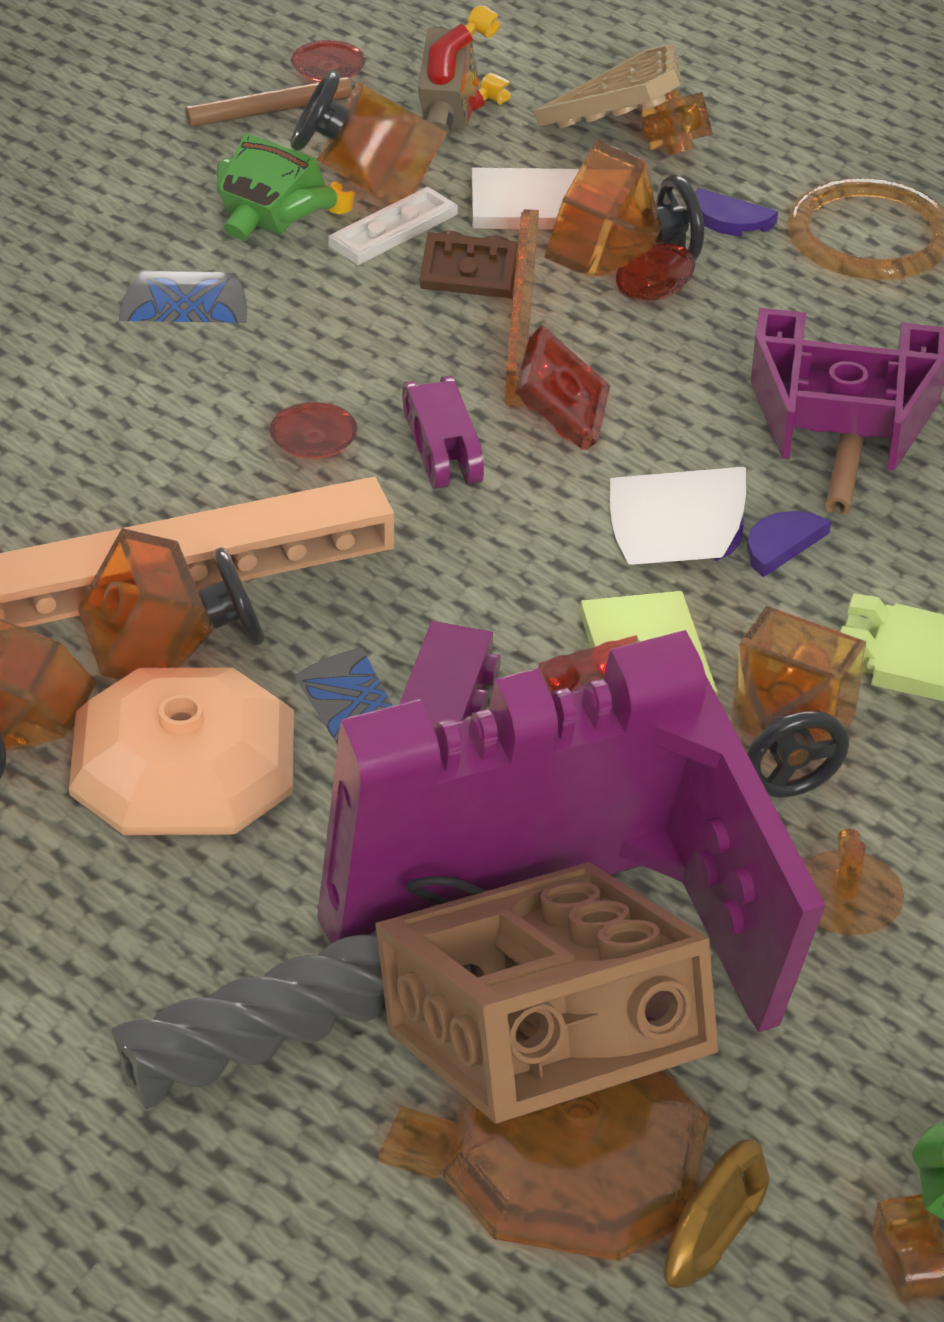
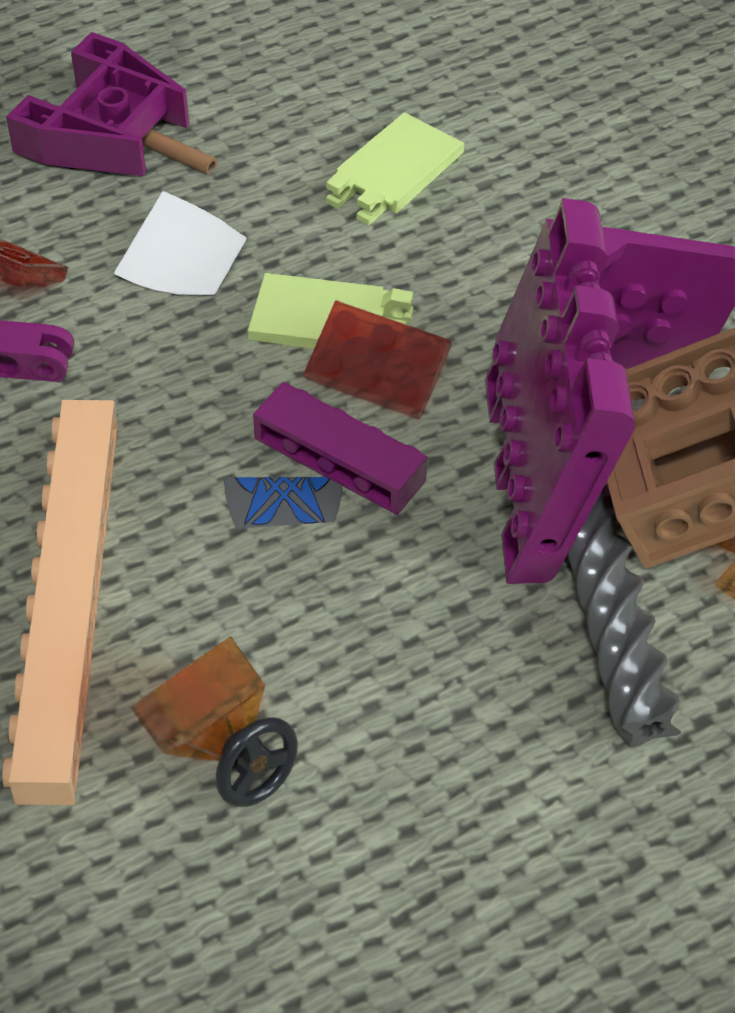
camera: 70 degrees left, 10 degrees up
(150, 610) = (155, 579): clear orange piece -> none
(182, 752) = (315, 646): light nougat rock -> none
(782, 537) = (231, 206): dark purple tile -> none
(796, 697) = (417, 241): clear orange piece -> none

